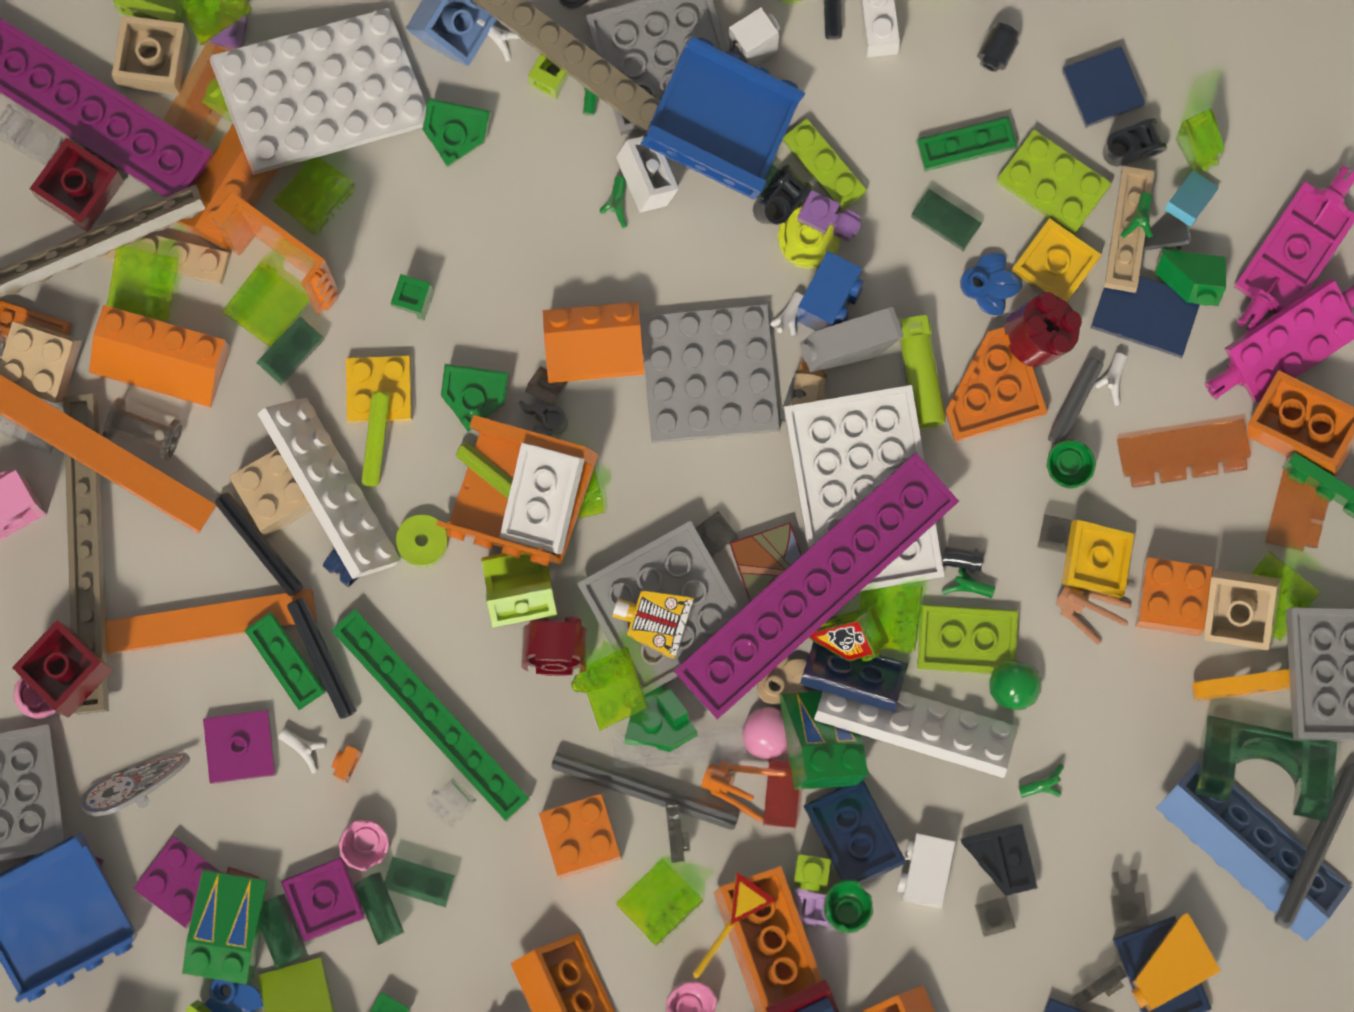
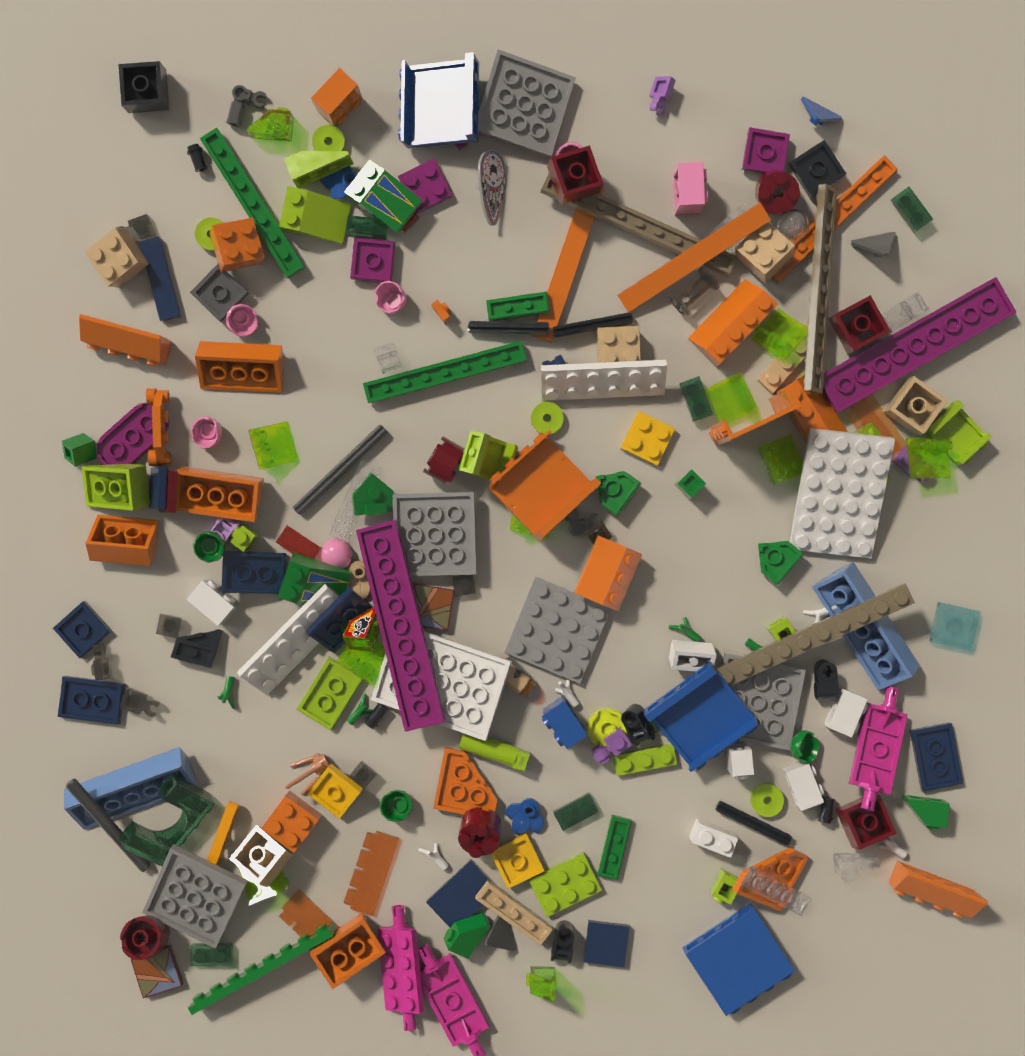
camera: 110 degrees right, 10 degrees up
(239, 747) = (483, 256): magenta plate -> none
(302, 746) = (465, 292): white bar -> none
(375, 438) = (618, 421): lime axle -> none
(378, 908) = (351, 288): clear green tile -> none
(419, 882) = (354, 318): clear green plate -> none
(485, 468) = (561, 477): lime axle -> none
(541, 498) = (529, 496): white plate -> none
(580, 836) = (332, 420): orange brick -> none
(611, 688) = (404, 480): clear neon green hinge -> none
(656, 620) = (427, 525): torso -> none
(678, 840) = (302, 473): clear smoke plate -> none
(720, 783) = (322, 513): orange plant -> none
(746, 901) = (242, 492): yellow piece -> none
(851, 340) = (530, 721): light grey slope -> none
(998, 47) = (660, 896): black brick -> none
(1015, 685) = (289, 706): green hair -> none
(1075, 400) = (432, 827): dark grey axle -> none
(1141, 217) = (515, 924): green bar -> none
(1174, 966) = (87, 709): light orange slope -> none
(1191, 198) = (512, 958): medium azure tile -> none

